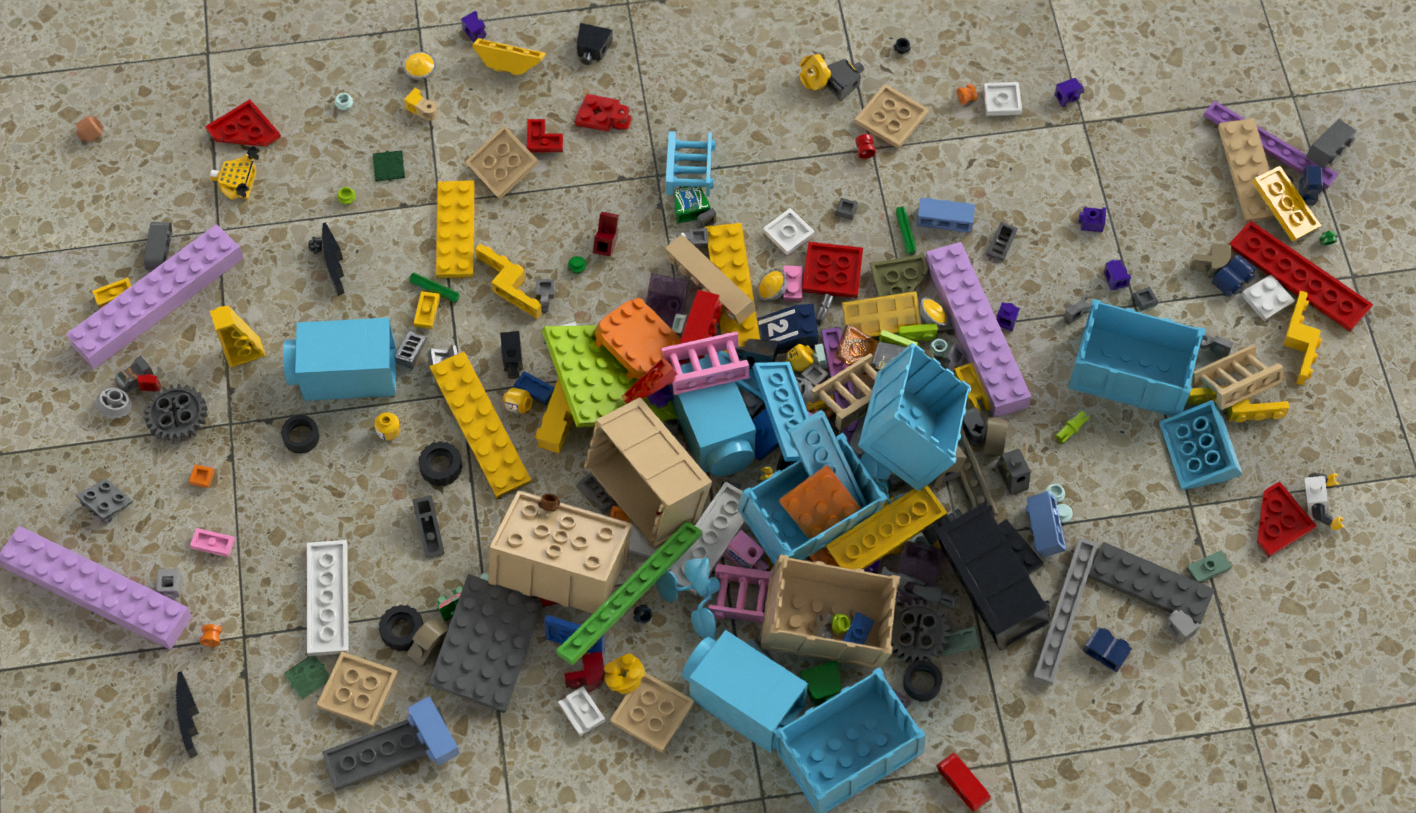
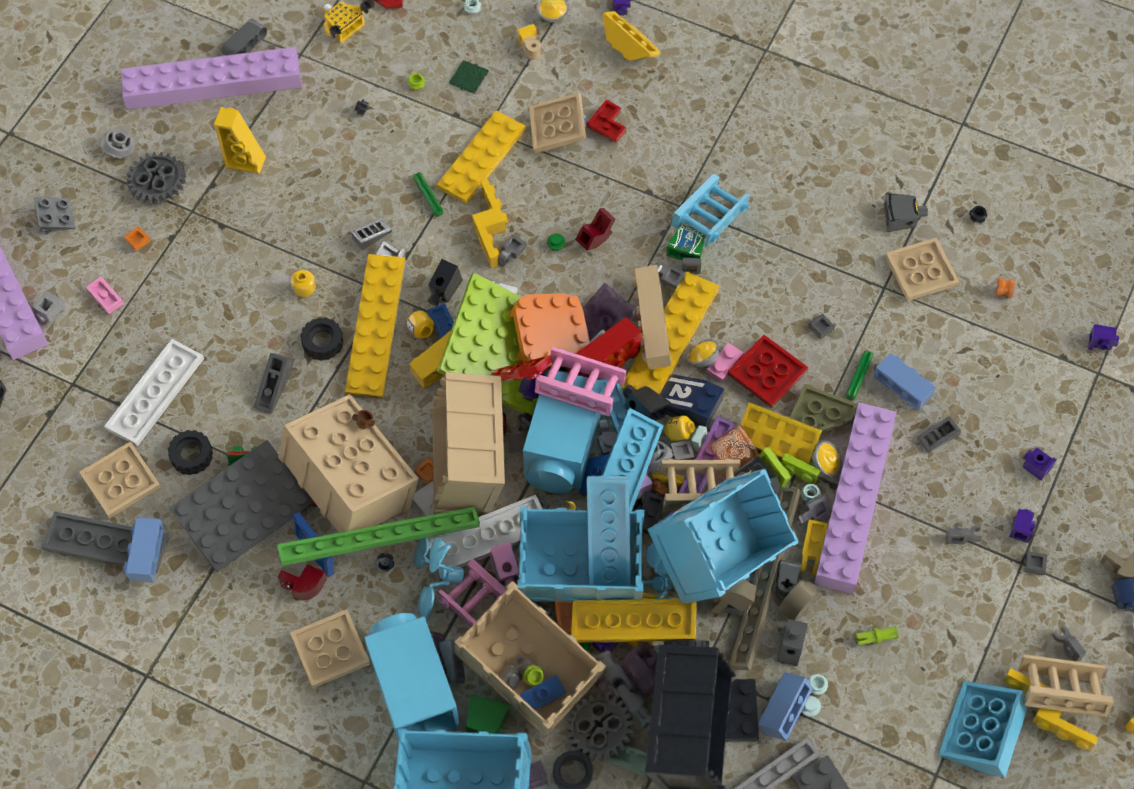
camera: 35 degrees right, 0 degrees up
(109, 292) = (177, 55): yellow plate -> none
(128, 378) = (149, 131): dark grey leg -> none
(148, 383) = (155, 142): red plate -> none
(210, 635) = (46, 367): orange wheel -> none
(296, 421) = (234, 238): black tyre -> none
(307, 676) = (93, 445): clear green piece -> none
(332, 257) = (367, 122): black slope -> none
(342, 359) = (306, 208): medium azure container -> none
(426, 310) = (407, 209): yellow plate -> none
(426, 640) = (198, 473): dark tan brick -> none
(581, 485) = (422, 424): flat silver slope -> none
(581, 711) = (274, 611): white plate -> none
(593, 42) = (709, 66): black torso -> none
(610, 114) = (679, 134): red plate -> none
(615, 669) = (326, 594): yellow plate -> none
(788, 231) = (754, 316): white plate -> none
(815, 64) = (879, 193): yellow plate -> none
(819, 502) = (584, 558): orange plate -> none
(824, 308) = (731, 401): flat silver piece -> none
(865, 145) = (878, 280): red wheel -> none
(1002, 99) = (1035, 310): white plate -> none
(1009, 312) = (894, 499): dark purple brick -> none
(1136, 359) = (979, 610): medium azure container -> none

